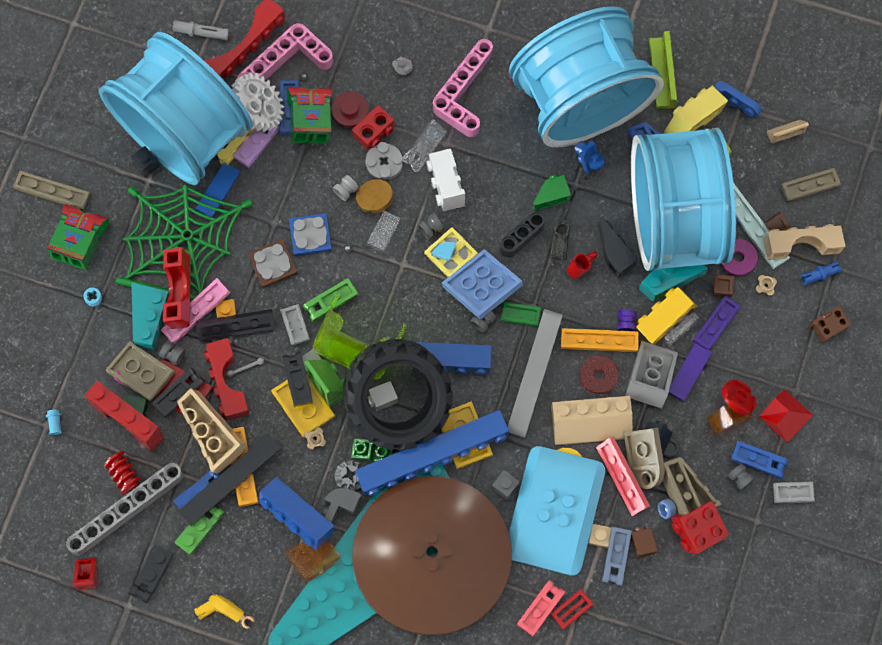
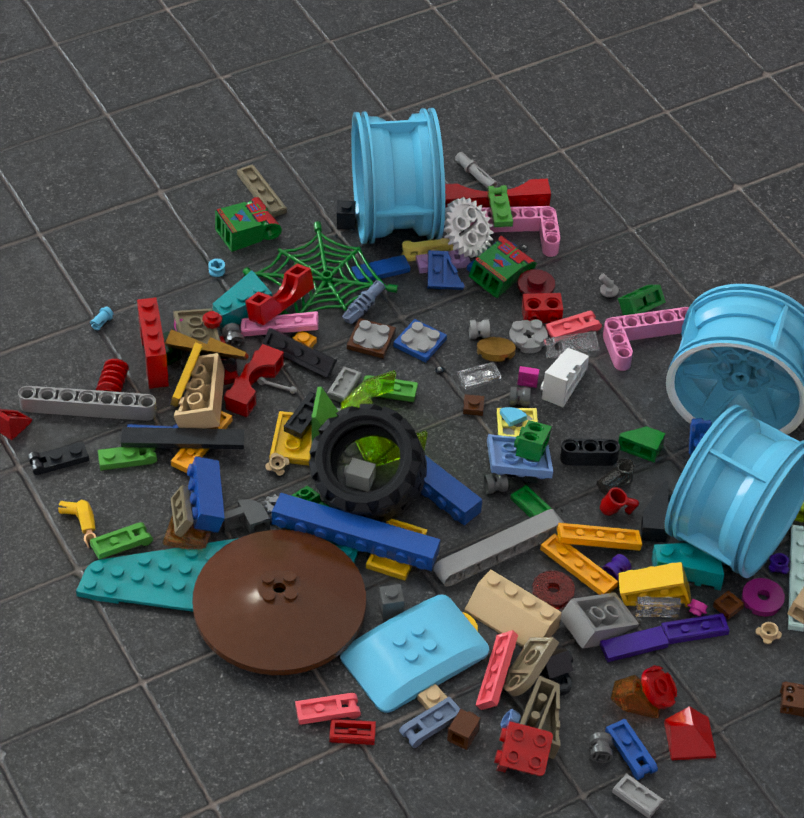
camera: 40 degrees right, 25 degrees down
(145, 354) = (212, 319): none -> red plate
(180, 383) = (180, 341): none -> pearl gold slope
(183, 426) = (179, 391): none -> yellow tile
(239, 237) = (363, 302): none -> sand blue hinge
(259, 57) = (500, 206): none -> bright green plate
(269, 157) = (442, 272): none -> blue wing
(270, 604) = (121, 540): none -> bright green plate
(293, 543) = (181, 511): none -> dark tan tile
(402, 260) = (473, 405): none -> reddish brown plate
(408, 125) = (575, 324): none -> coral plate
(420, 201) = (528, 377): none -> dark pink plate
(440, 60) = (641, 300): none -> green brick
(484, 264) = (532, 440): none -> green brick
(594, 305) = (599, 536): none -> light orange plate
(706, 306) = (697, 607): none -> dark pink plate

